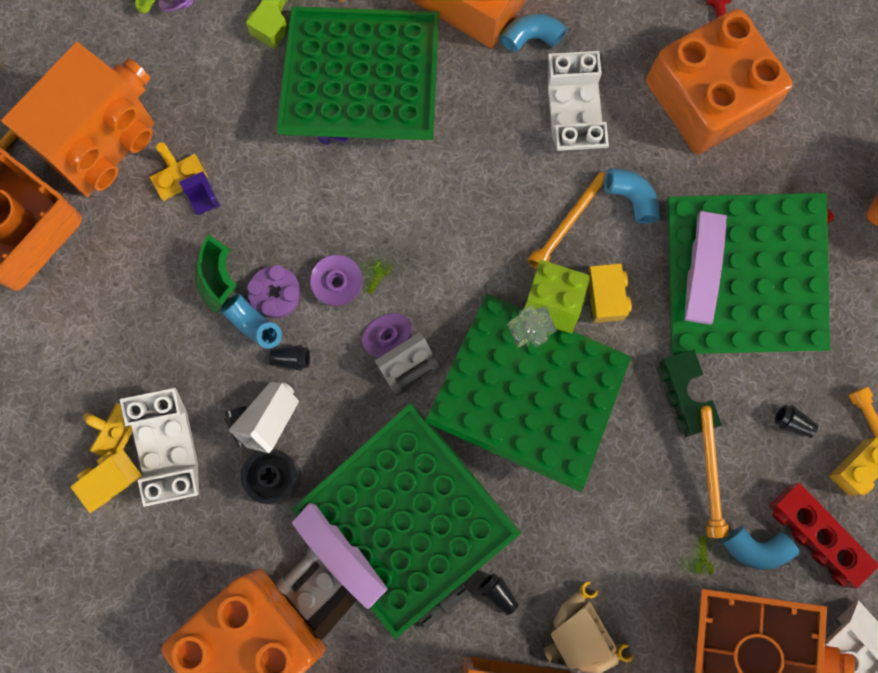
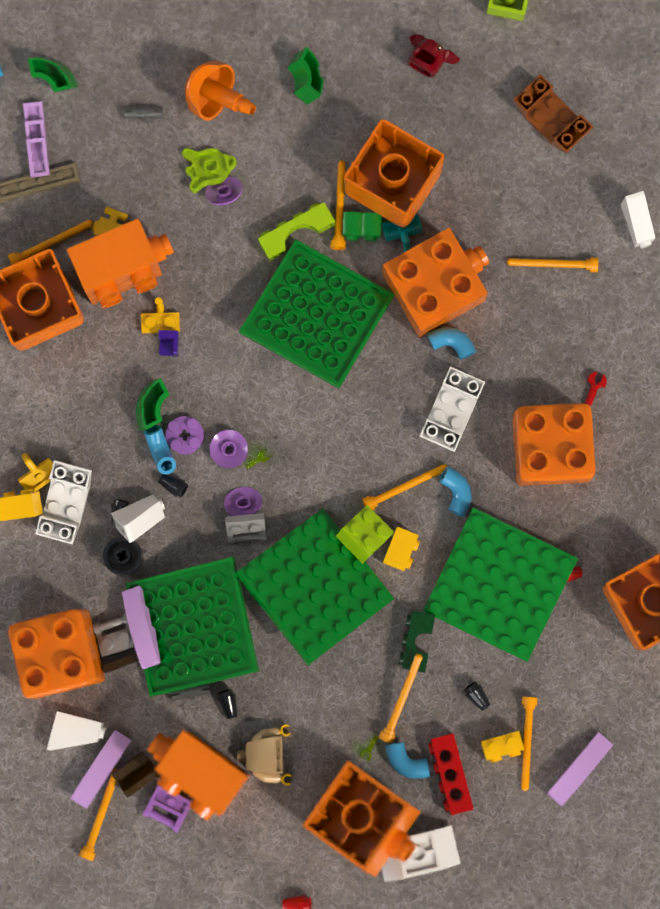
camera: 30 degrees right, 5 degrees up
(537, 326) = (335, 547): clear brick -> none
(706, 268) = (468, 566): lavender slope -> none

